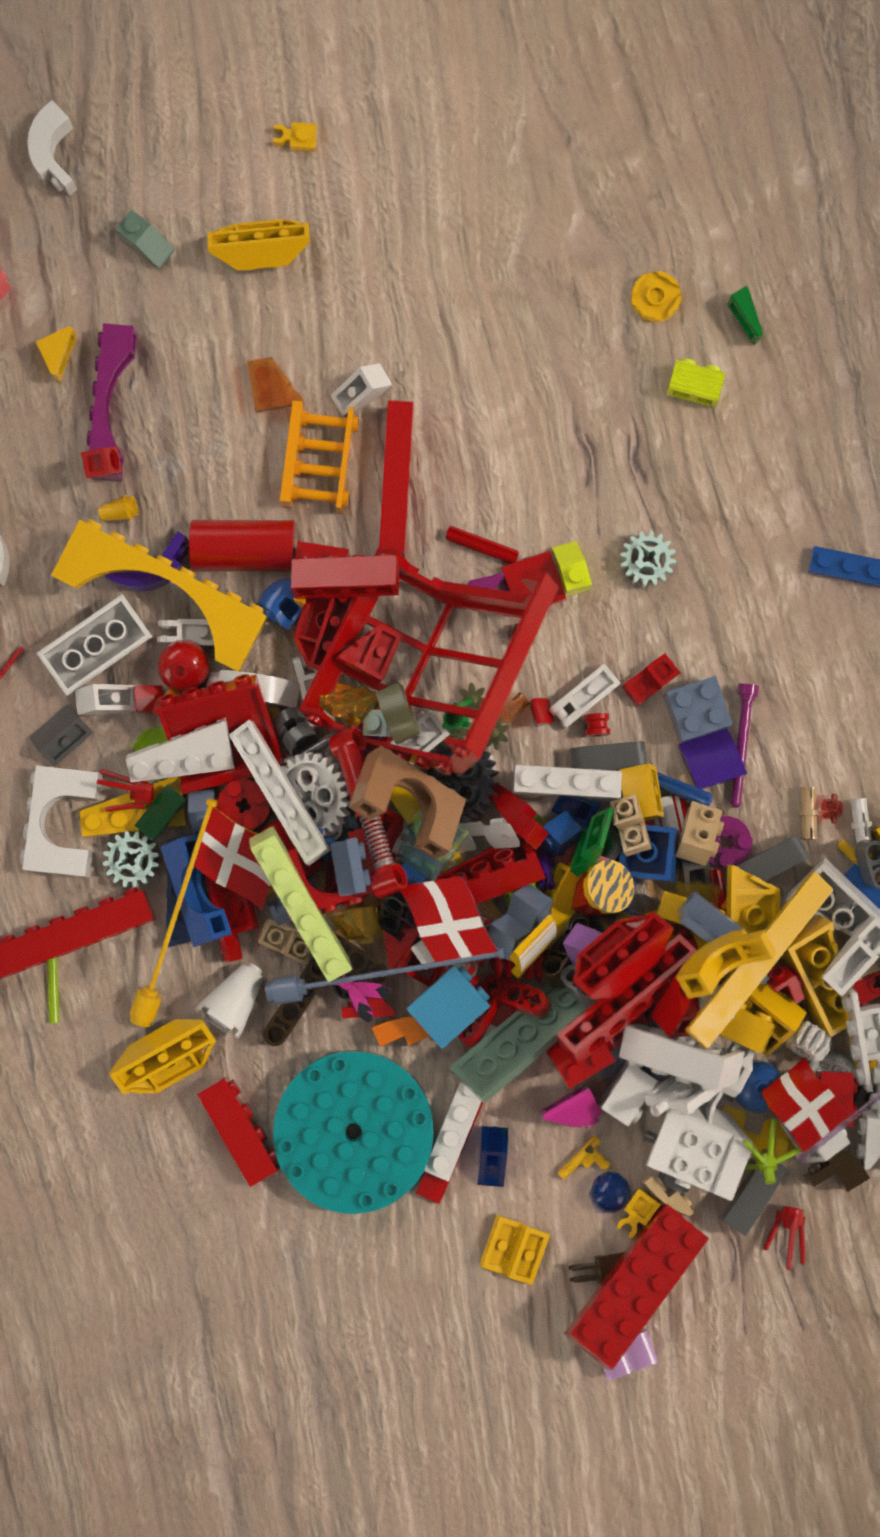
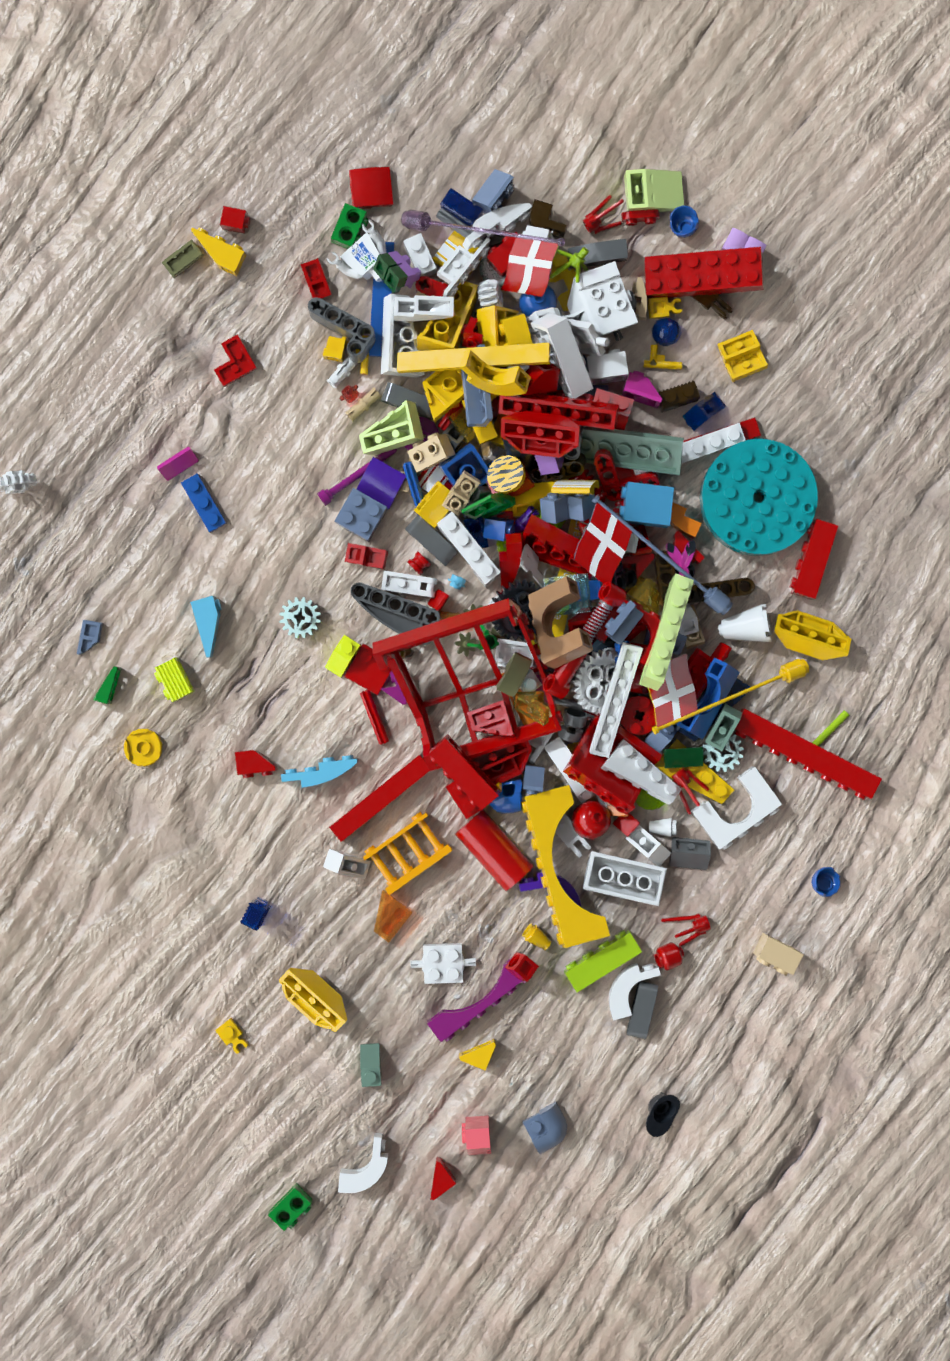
camera: 130 degrees left, 5 degrees up
(35, 552) = (602, 961): none -> lime brick
(84, 45) = (287, 1204): none -> green brick
(110, 732) = (663, 827): none -> white cone
(152, 880) = (723, 727): none -> sand green slope
(178, 397) = (443, 963): none -> white plate
(276, 643) = (533, 779): none -> sand blue slope
(292, 942) = (689, 622): none -> white panel
(393, 256) = (255, 913): none -> clear blue brick
(470, 451) = (327, 771): none -> medium azure slope
(531, 1142) = (679, 396): none -> dark brown brick
(543, 747) = (456, 581): none -> medium azure plate
(544, 388) = (253, 762): none -> red slope
(557, 651) = (396, 620): none -> dark grey beam
(709, 1315) = (684, 221): none -> blue hair
(727, 467) = (207, 619): none -> medium azure slope
(748, 1282) = (648, 216): none -> red plate
(754, 816) = (394, 431): none -> yellowish green wedge
(769, 1313) = (653, 189): none -> yellowish green slope
(814, 341) = (89, 635): none -> sand blue tile

